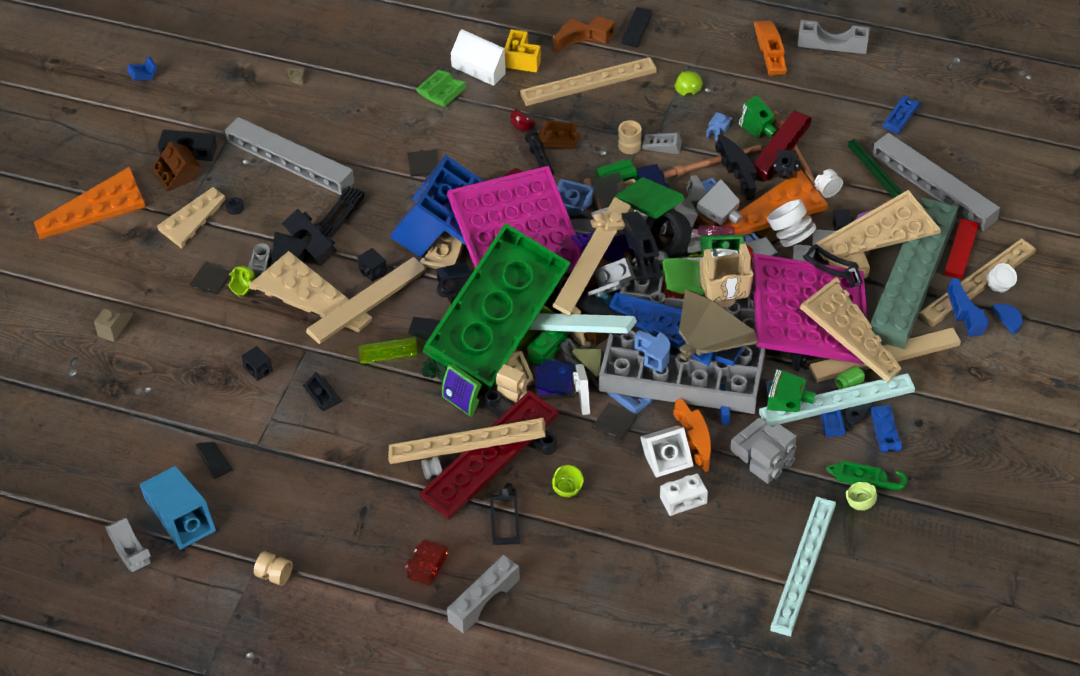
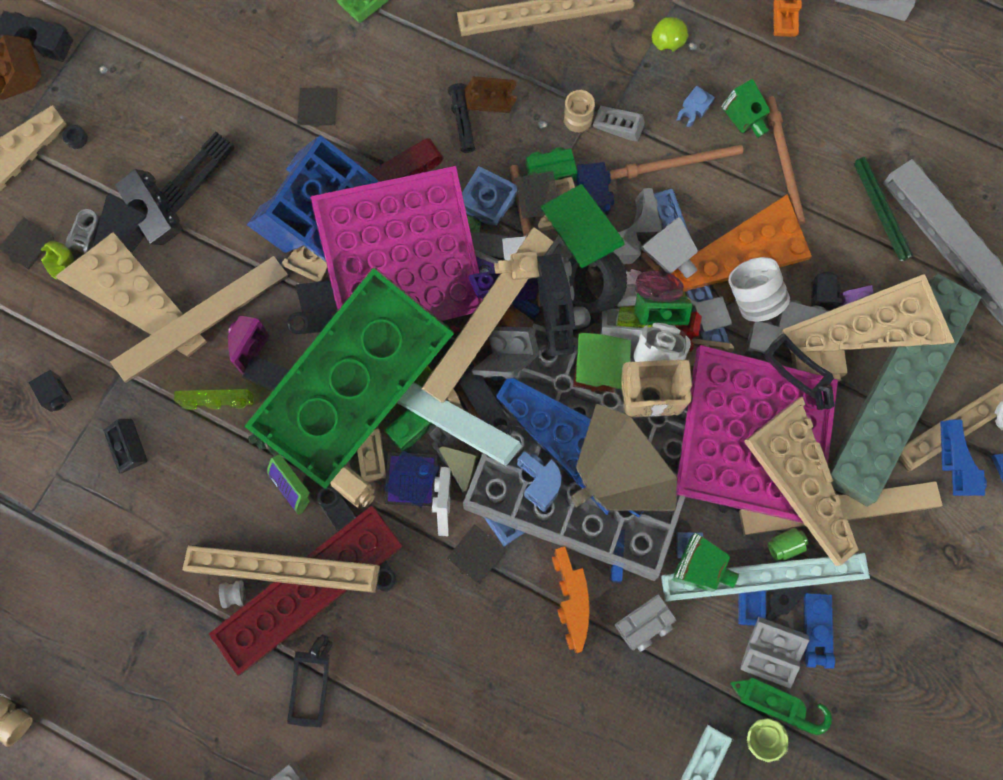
camera: 10 degrees right, 25 degrees up
(289, 155) = (153, 72): light grey brick -> none
(372, 264) = (220, 260): black brick -> none
(405, 308) = (244, 340): none -> magenta slope
(426, 562) = (197, 743): clear red brick -> none
(521, 121) = (449, 63): dark red hair -> none
(567, 481) = (395, 649): lime hair -> none
(667, 450) = (532, 618): white slope -> none
(683, 494) = (539, 693): white brick -> none
(738, 162) = (707, 171): black slope -> none
(773, 453) = (665, 658): light grey brick -> none
(784, 139) = (769, 155): dark red beam -> none
(787, 164) = (767, 183): black brick -> none
(828, 183) = (818, 225): white wheel -> none
(855, 444) = (774, 652): none -> light grey slope
(901, 114) = (932, 126): blue plate -> none
(961, 249) = (970, 354): red tile -> none

